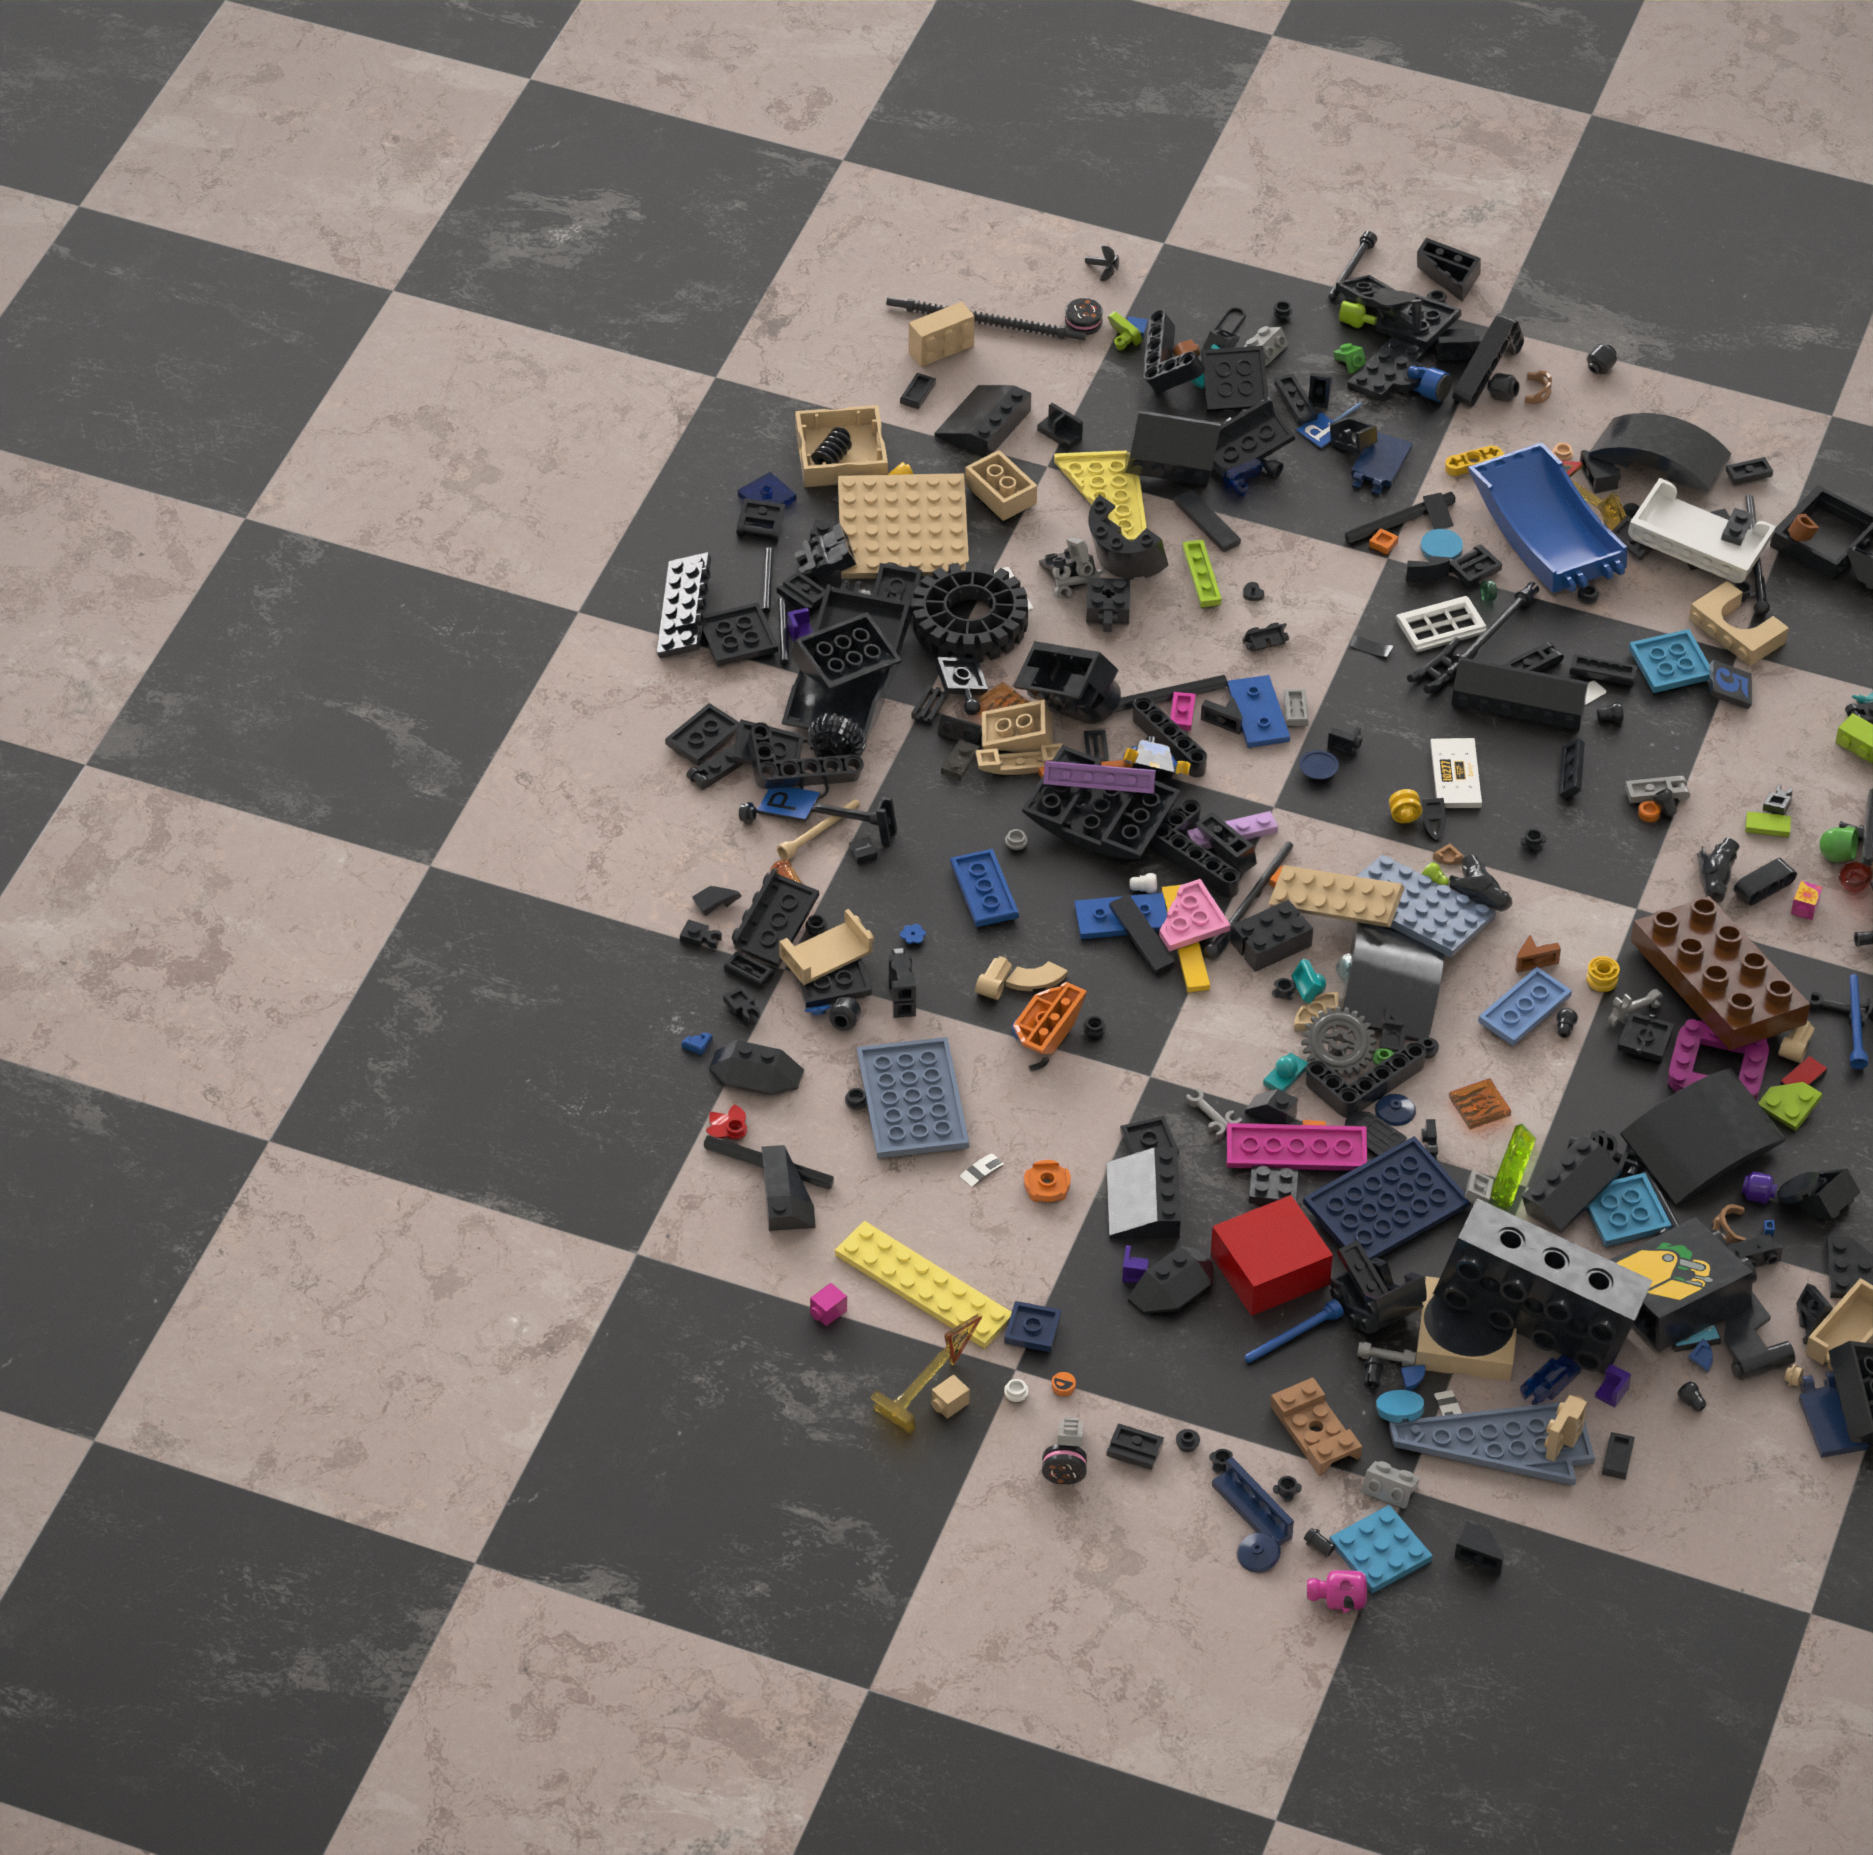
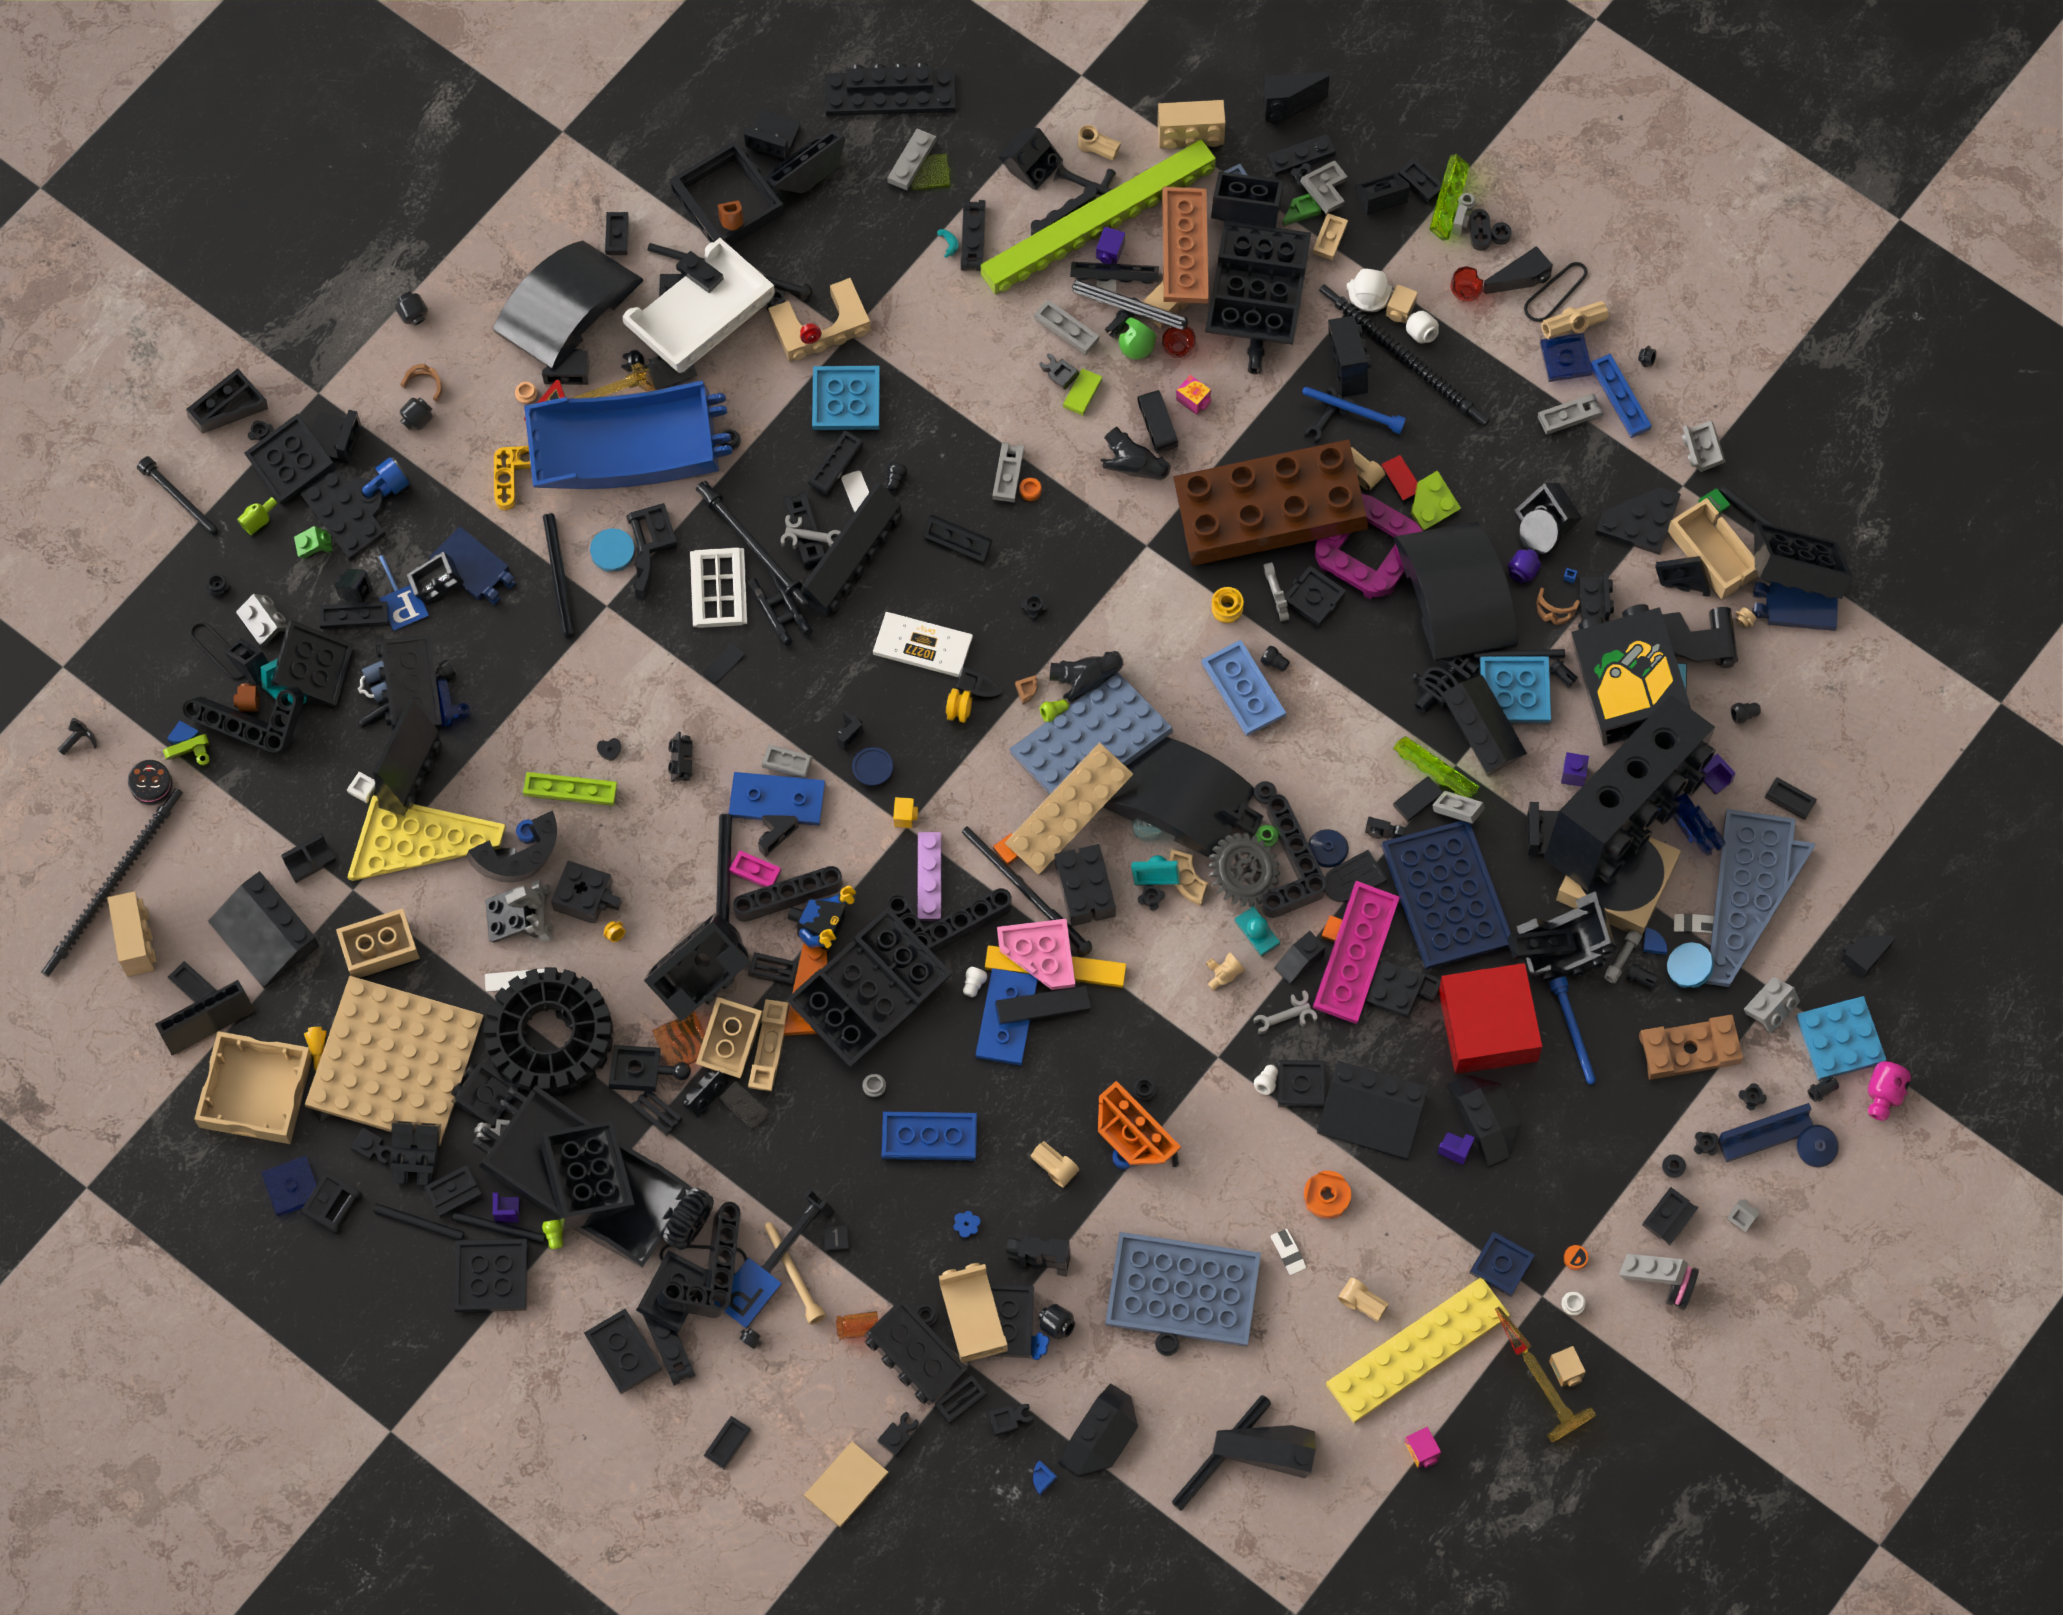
camera: 70 degrees left, 20 degrees up
(641, 910) = (846, 1484): none -> tan tile
(649, 824) = (727, 1442): none -> black tile
(684, 605) = (431, 1317): plate -> none
(713, 897) = (856, 1406): black slope -> none
(728, 1125) = (1156, 1479): red plate -> none
(788, 666) = (554, 1233): none -> lime piece
(833, 447) = (259, 1099): black piece -> none
(891, 402) = (205, 1017): none -> black brick
(955, 1225) = (1356, 1296): none -> tan piece
(1040, 977) = (1063, 1123): tan tile -> none
(1082, 634) = (614, 931): none -> yellow plate
(1099, 777) = (849, 977): medium lavender plate -> none
(1140, 1111) = (1266, 1080): none -> white piece
(1159, 1504) = (1743, 1215): none -> light grey tile
(1207, 520) = (494, 759): black tile -> none
(1228, 843) = (953, 886): black slope -> none
(1234, 1057) = (1226, 972): none -> tan piece
(1283, 795) = (904, 813): none -> yellow plate
(1374, 293) = (247, 484): black plate -> none
(1383, 541) = (585, 601): orange tile -> none
(1438, 511) = (565, 536): black sticker -> none
(1472, 1159) = (1418, 798): none -> black tile
(1480, 1103) = (1346, 770): clear orange tile -> none
(1488, 590) = (693, 528): clear green tile -> none
(1501, 336) = (383, 414): black beam -> none
(1518, 652) = (794, 531): none -> light grey bar
(1531, 956) = (1183, 659): dark orange slope -> none
(1566, 1426) = (1769, 828): tan plate -> none
(1665, 801) = (1030, 470): black piece -> none
(1702, 1355) = (1700, 686): blue tile -> none
(1714, 609) = (810, 333): none -> red plate
(1730, 684) = (898, 356): black tile -> none
(1827, 795) = (1066, 327): none -> light grey plate

